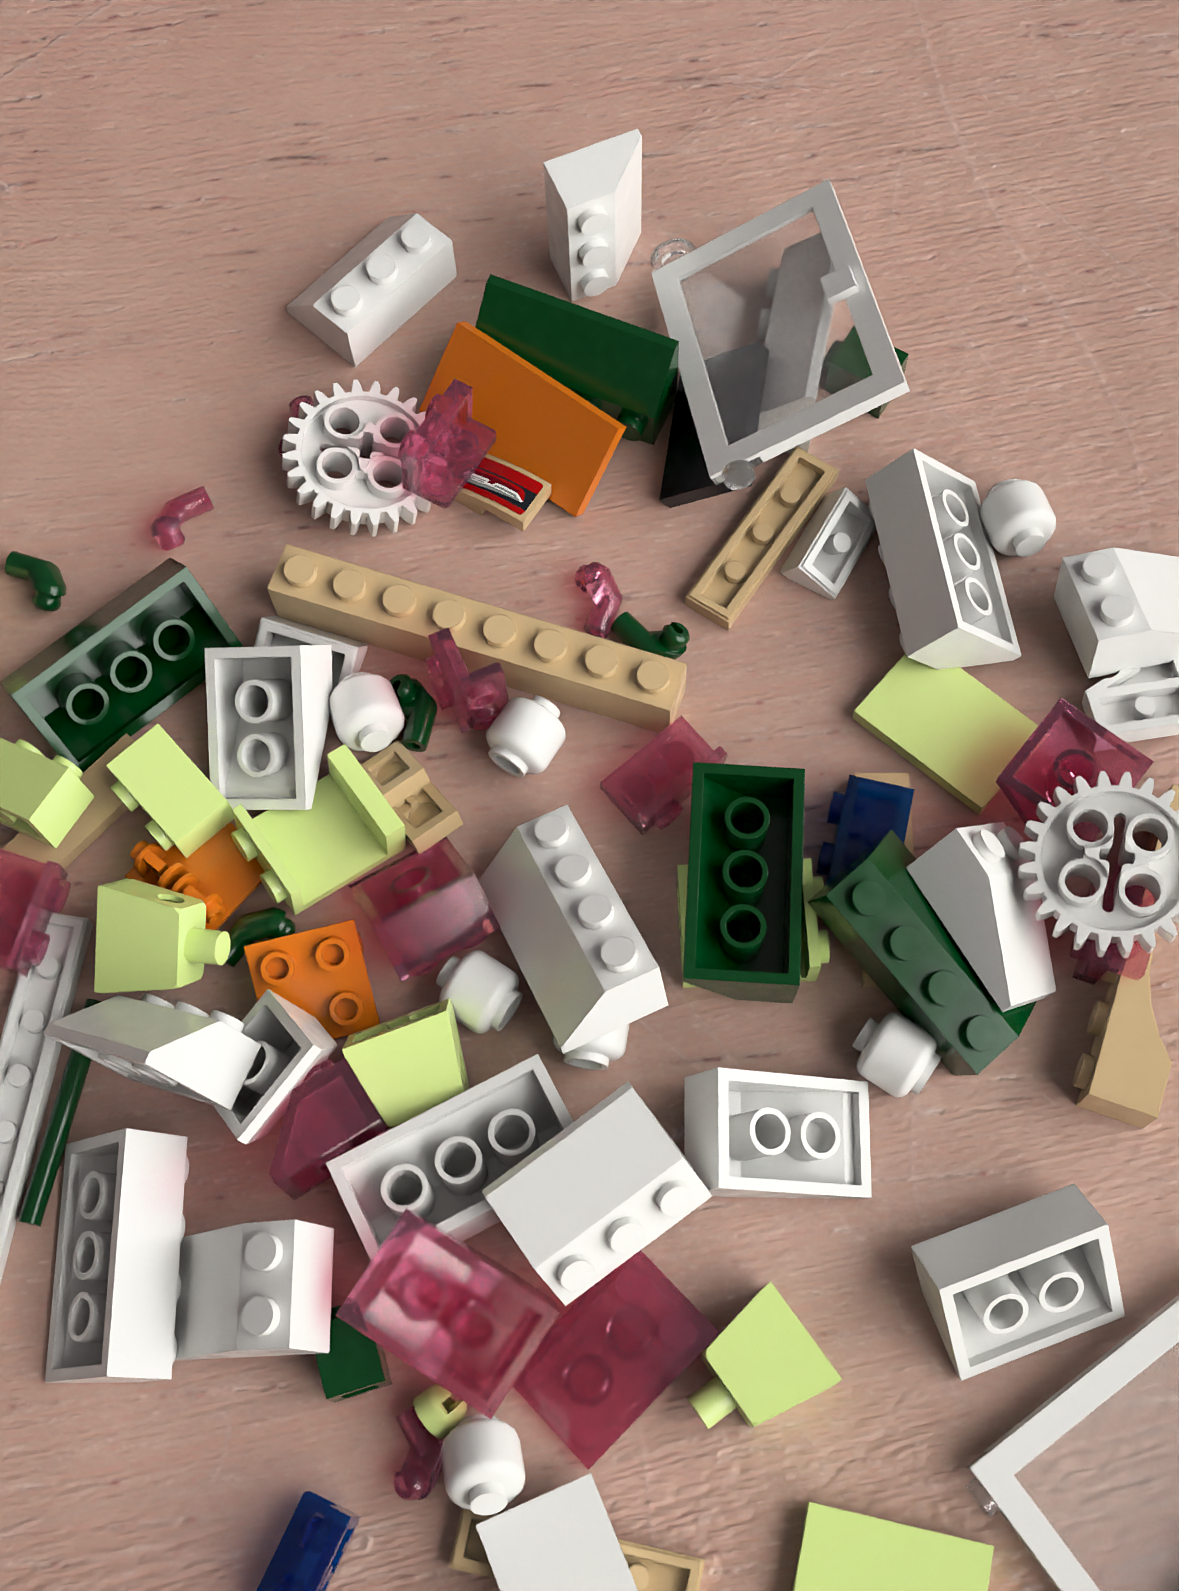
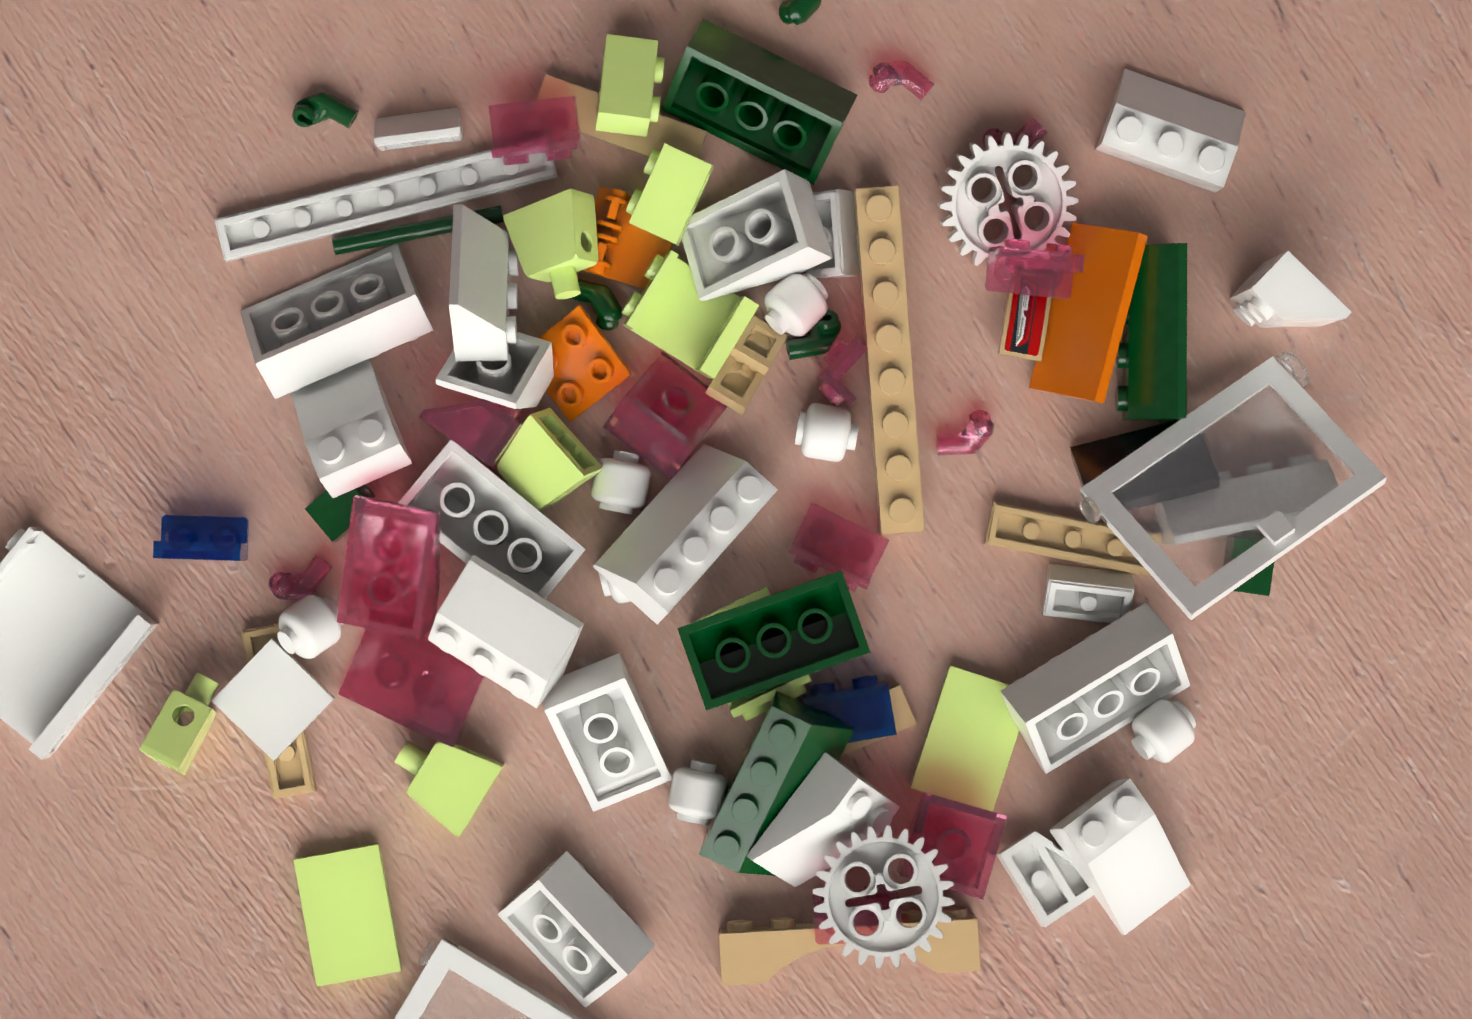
camera: 65 degrees right, 20 degrees up
(439, 1410) = (329, 582): yellowish green hinge -> none
(668, 642) = (944, 493): dark green arm -> none

